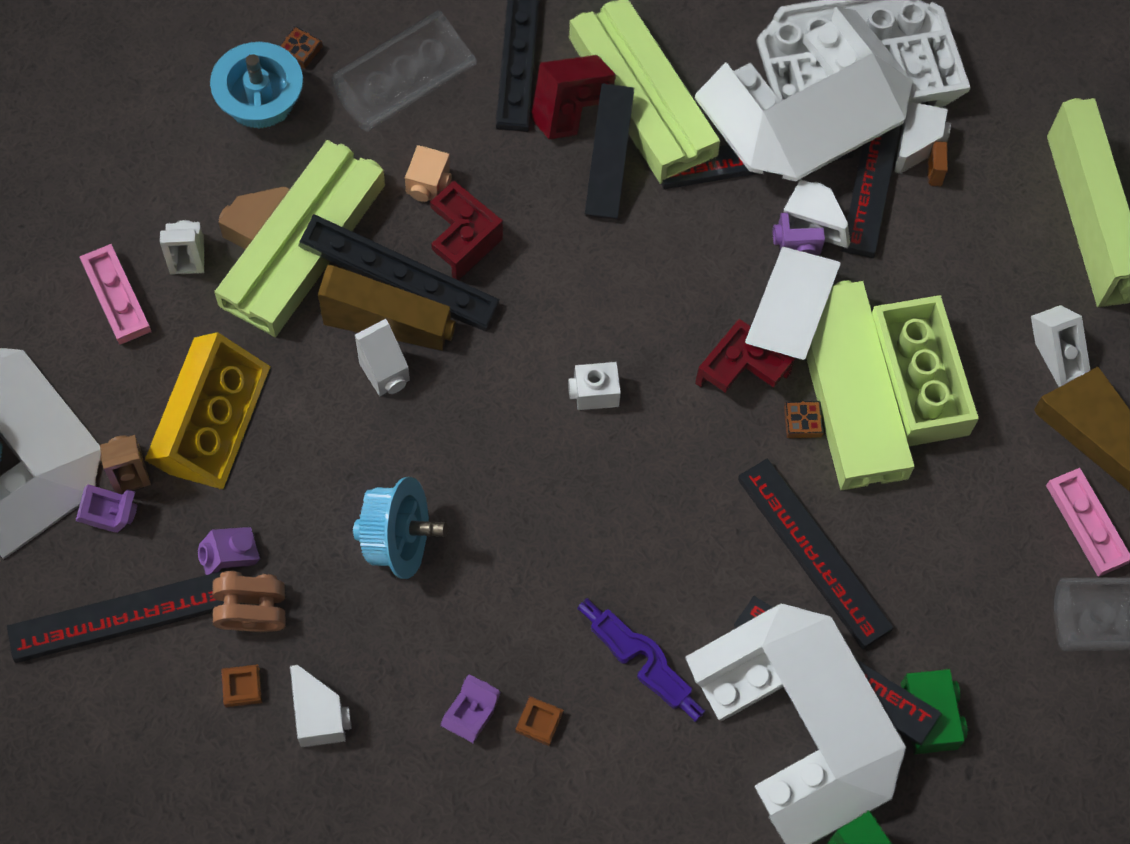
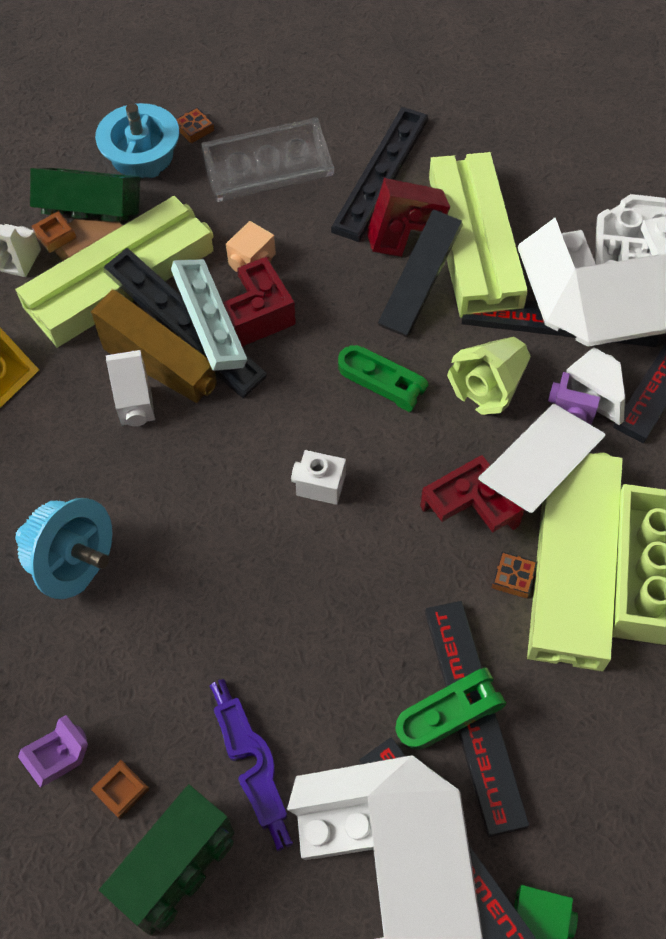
camera: 25 degrees right, 5 degrees down
(224, 218) = (54, 231): none -> dark orange tile
(234, 164) = (84, 193): none -> dark green brick
(425, 258) = (208, 315): none -> light aqua plate
(610, 268) = (381, 376): none -> green plate
(618, 757) = (169, 861): none -> dark green brick
(714, 234) = (489, 373): none -> yellowish green cone
(794, 556) = (448, 710): none -> green plate

